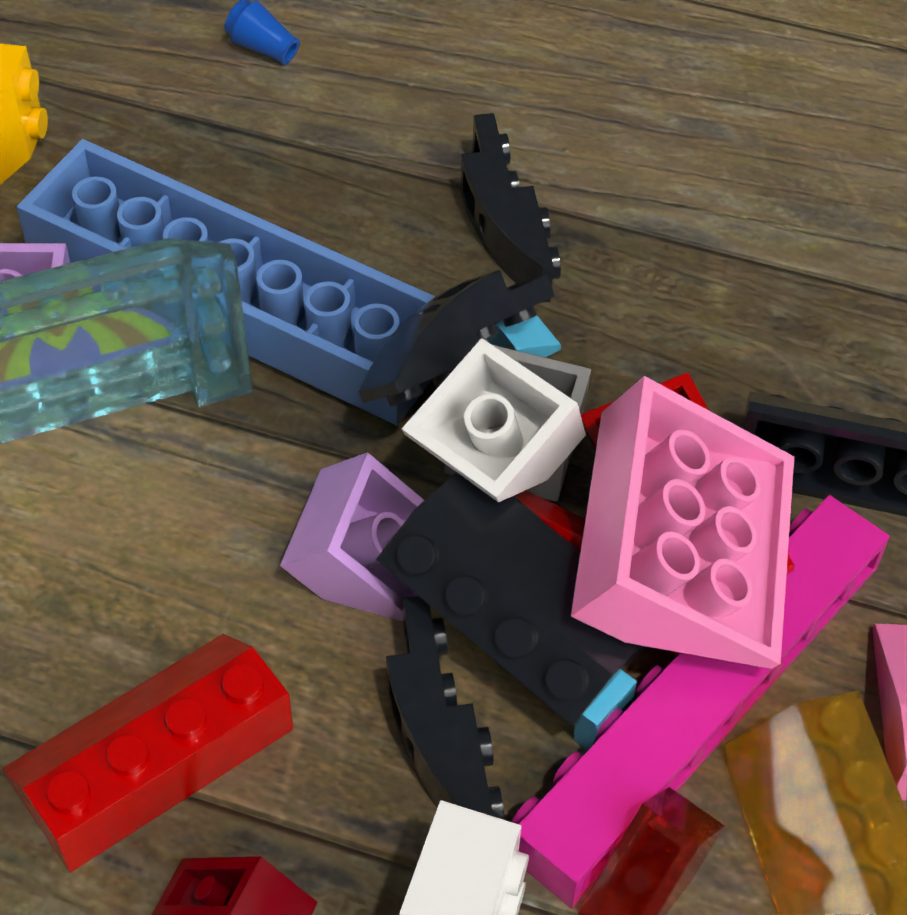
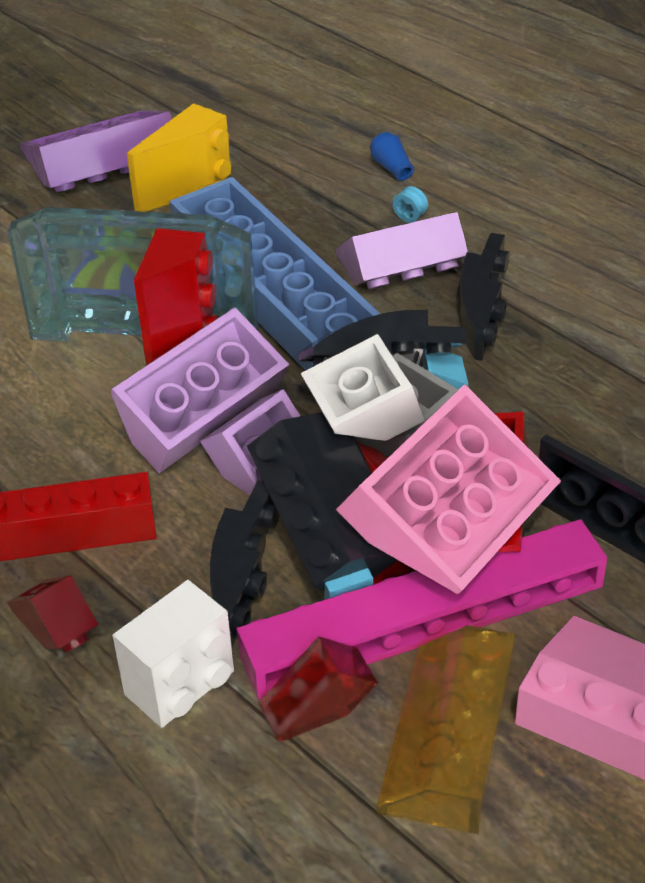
camera: 30 degrees right, 10 degrees down
(167, 386) = (174, 290): none -> red slope
(239, 491) = (197, 388): none -> lavender slope
(334, 90) = (402, 202): none -> medium azure bush
(367, 176) = (403, 251): none -> lavender slope

